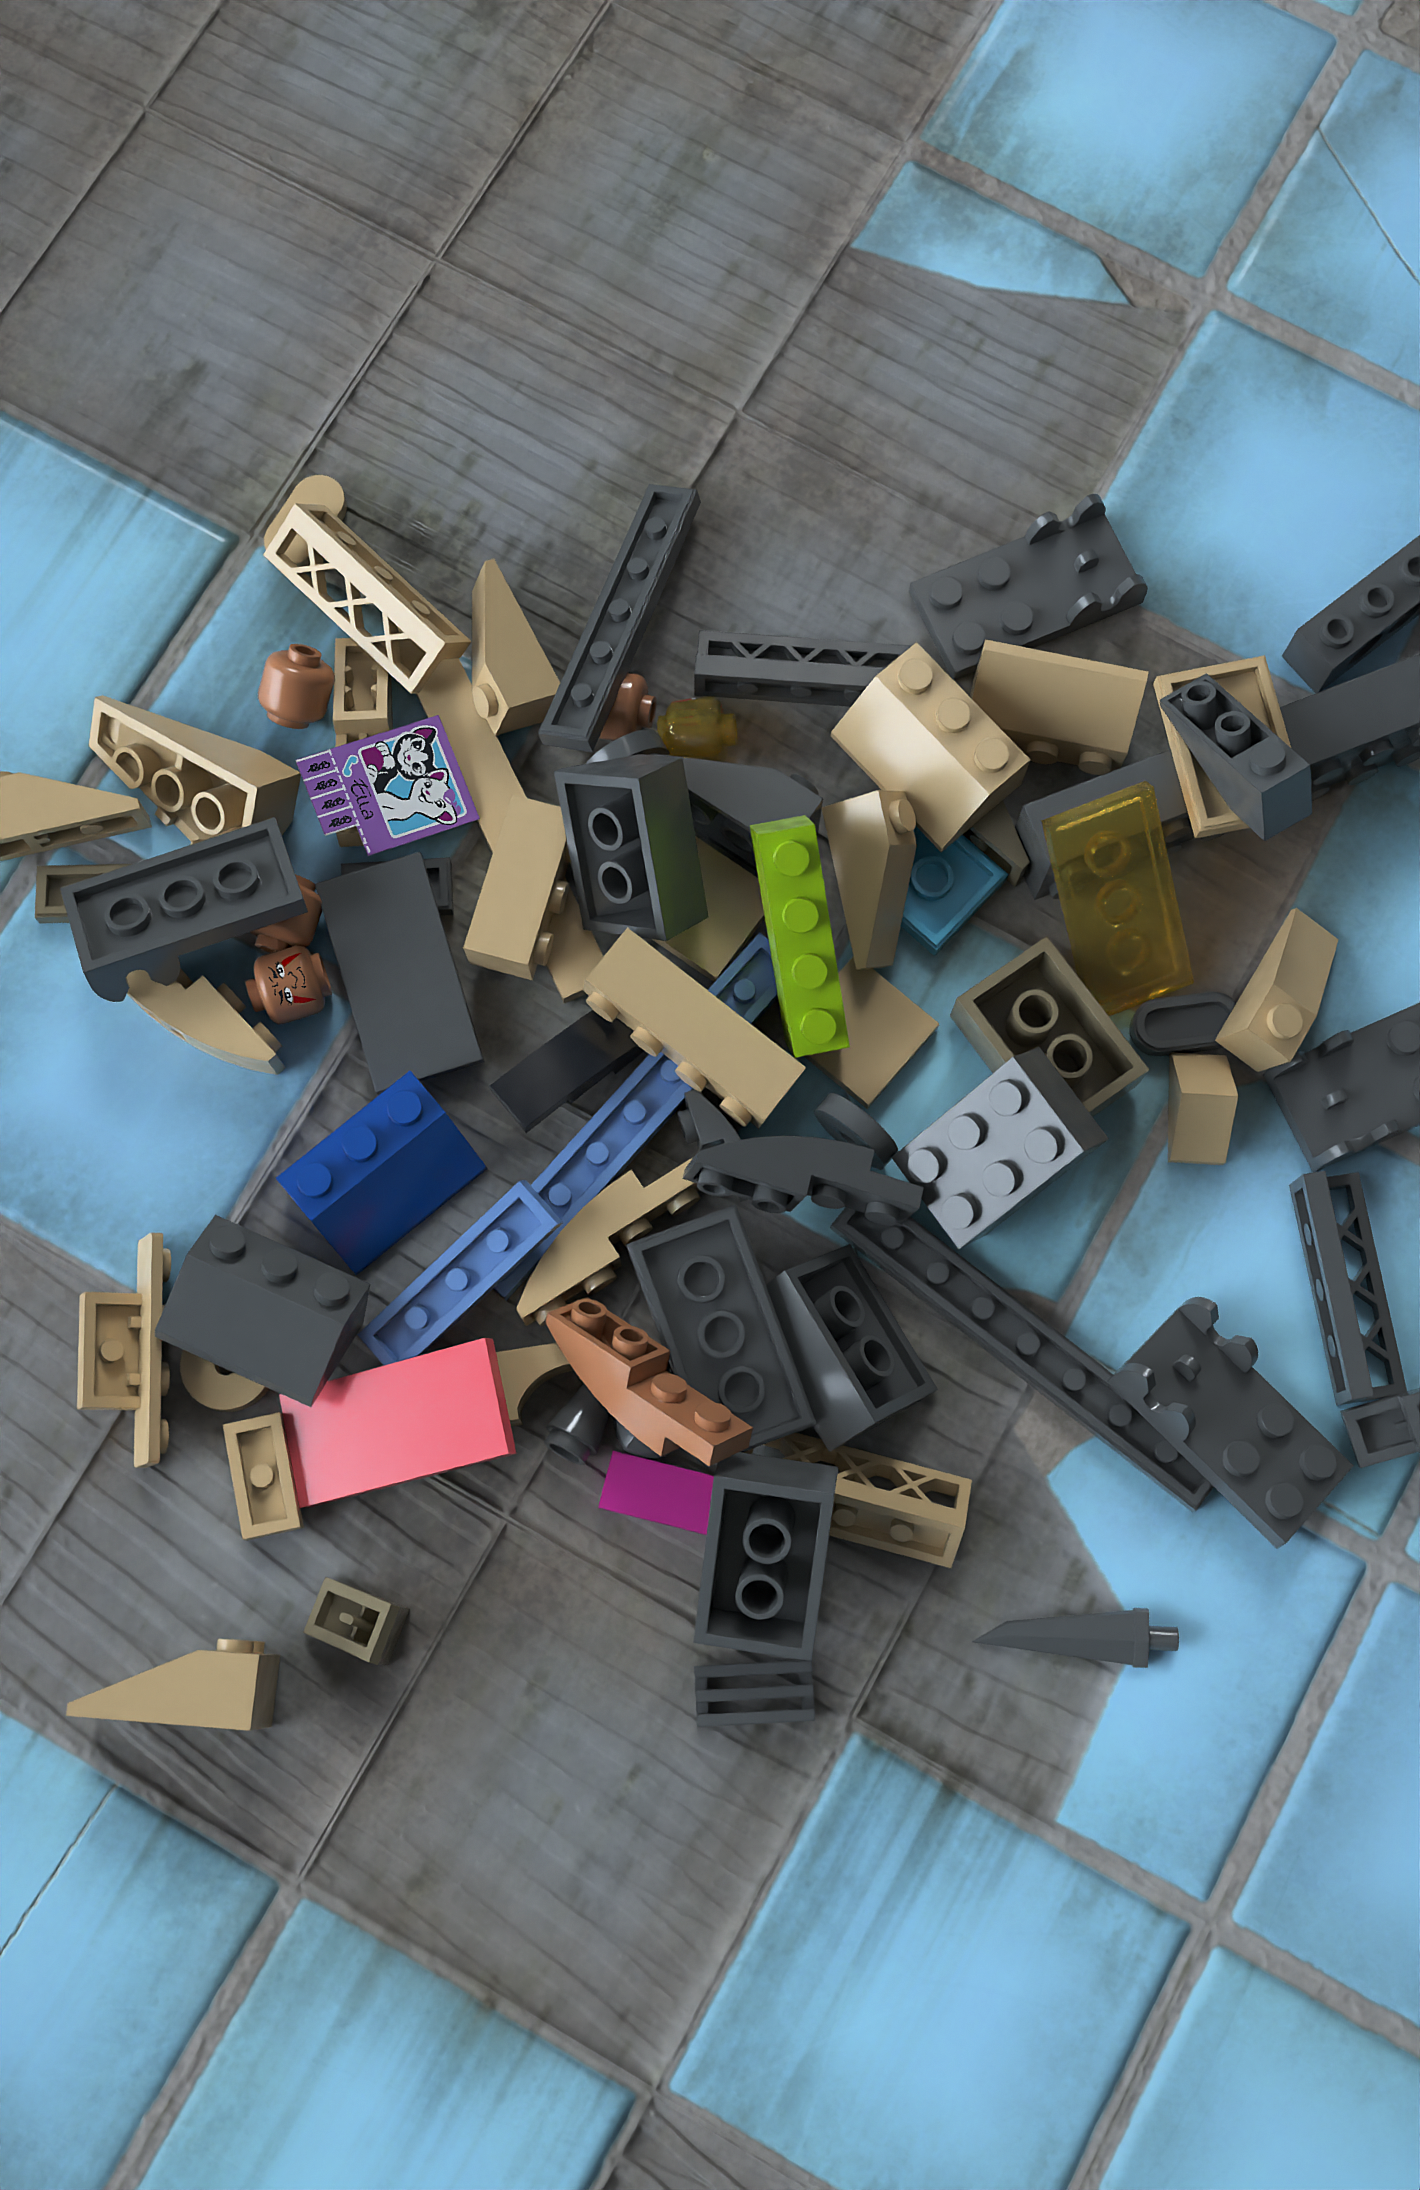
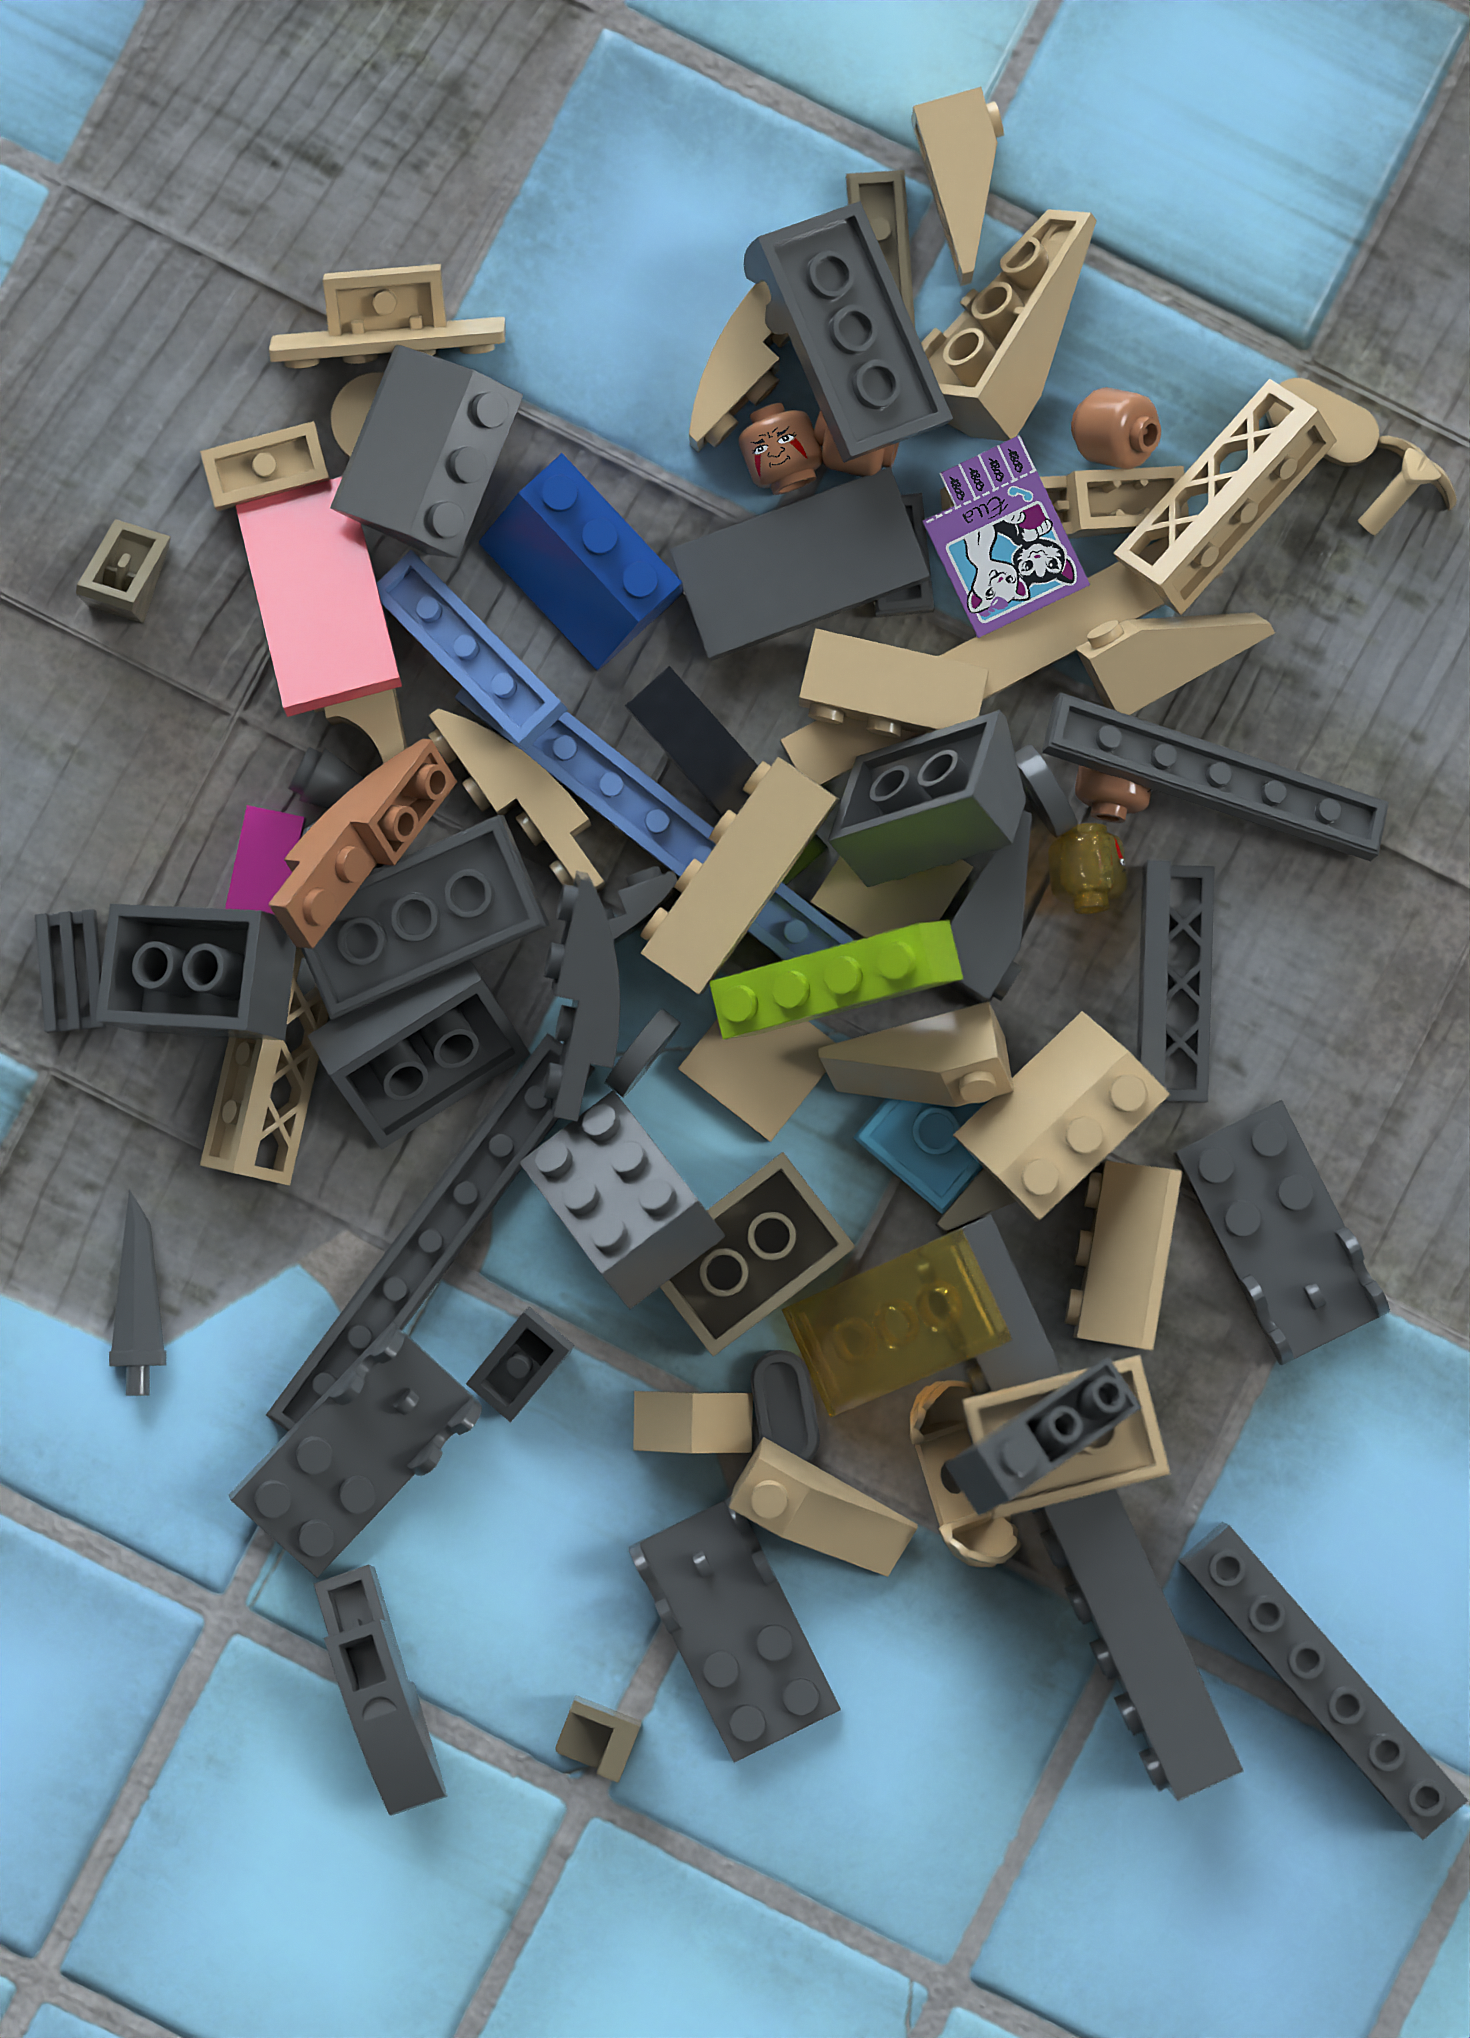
camera: 95 degrees right, 10 degrees up
(201, 1689) = (47, 432): tan slope -> none
(355, 442) = (1416, 470): none -> tan plant
(1148, 1257) = (520, 1364): none -> dark grey slope
(1294, 860) = (941, 1434): none -> tan piece
(1334, 1289) = (497, 1557): dark grey fence -> none

